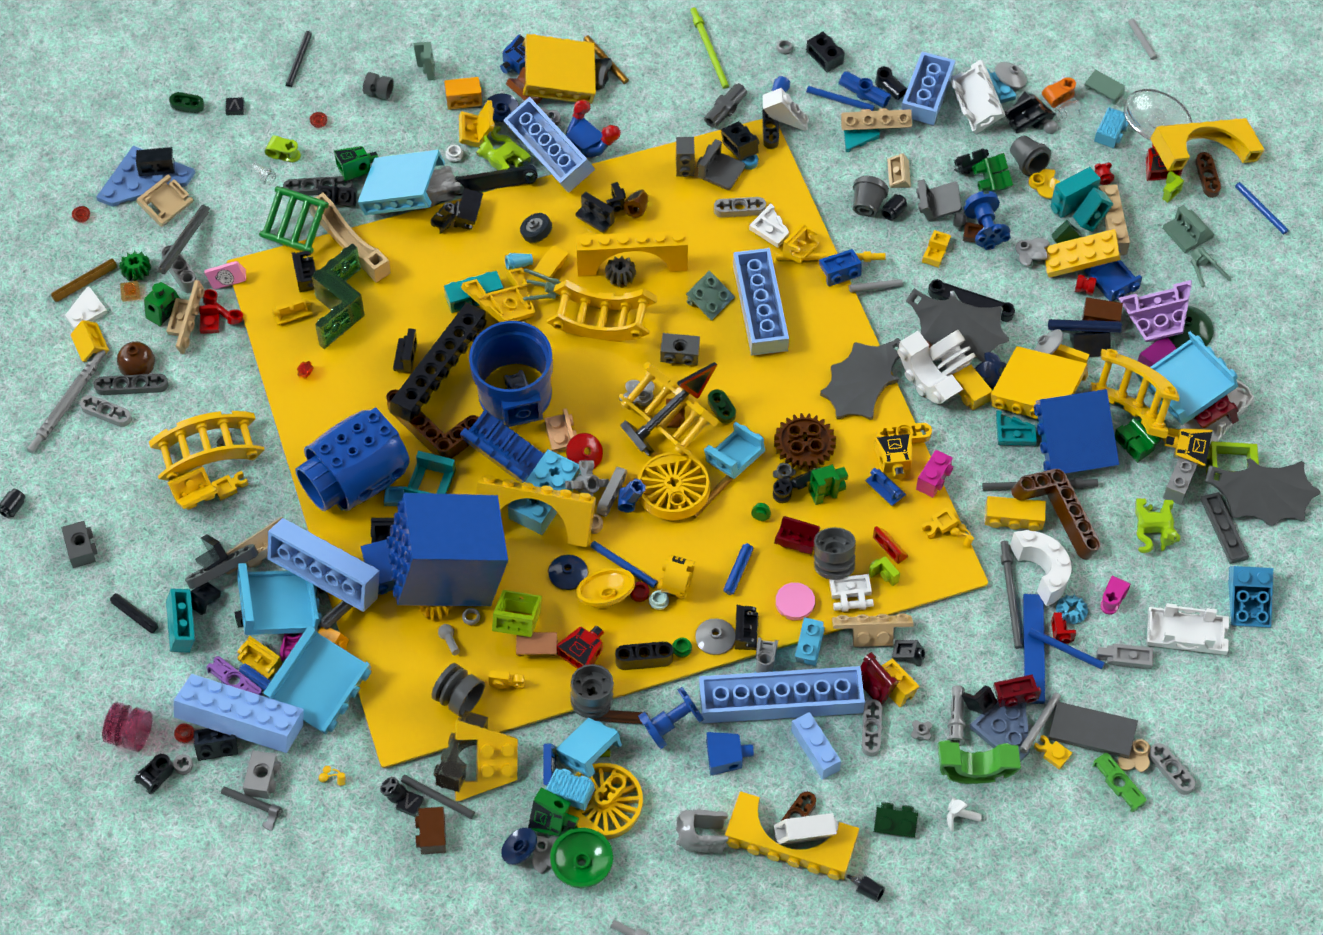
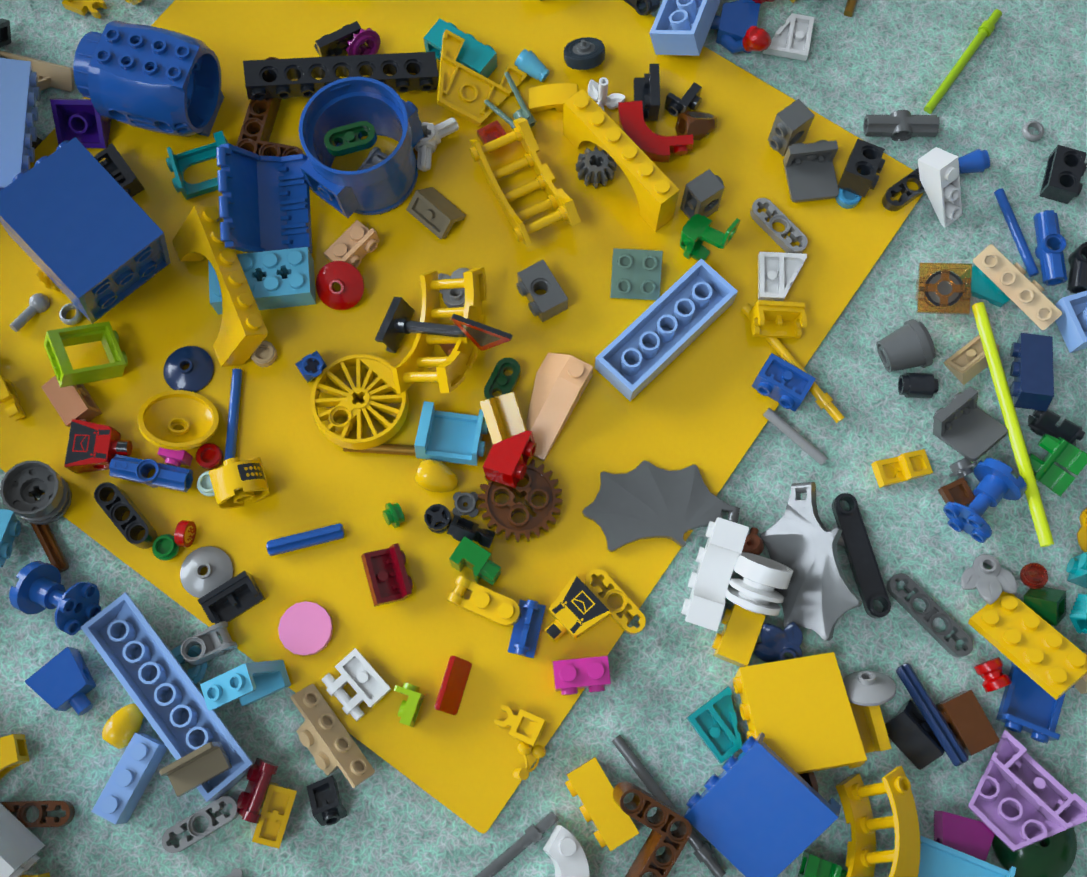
camera: 55 degrees right, 15 degrees up
(336, 528) = (80, 120): none -> dark purple slope
(393, 495) = (160, 147): dark azure tile -> none
(423, 339) = (370, 37): none -> magenta gear
(523, 361) = (351, 137): none -> dark green plate
(548, 310) = (490, 132): none -> clear red plate
(566, 241) = (599, 91): none -> white plant
(576, 374) = (434, 211): none -> dark tan panel
(586, 481) = (291, 322): light grey pin -> none
(606, 226) = (653, 145): none -> red arch
(611, 491) = (306, 345): light grey beam -> none
(619, 115) = (792, 38): none -> white wing
(625, 607) = (175, 457): none -> dark pink plate
(635, 618) = (138, 469): none -> blue piece
(682, 629) = (185, 533): none -> red tile
(692, 224) = (702, 195): none -> dark grey brick
(712, 243) = (699, 230): none -> green piece
(750, 416) = (503, 417): none -> panel
(753, 384) = (554, 396): none -> light nougat wedge
(754, 475) = (435, 476): none -> yellow animal
(779, 426) = (509, 458): none -> red slope
(780, 734) = (122, 726): none -> yellow animal
(834, 553) = (386, 620): dark grey wheel -> none
(842, 692) = (197, 767): none -> dark tan panel
(848, 154) = (944, 288): none -> clear orange piece
(853, 498) = (485, 602): none -> yellow plate
(932, 147) = (1032, 371): none -> dark blue brick
(954, 177) = (1011, 422): none -> neon yellow piece
(1029, 290) = (931, 612): none -> dark grey beam
(1046, 229) = (1034, 575): none -> clear red plate

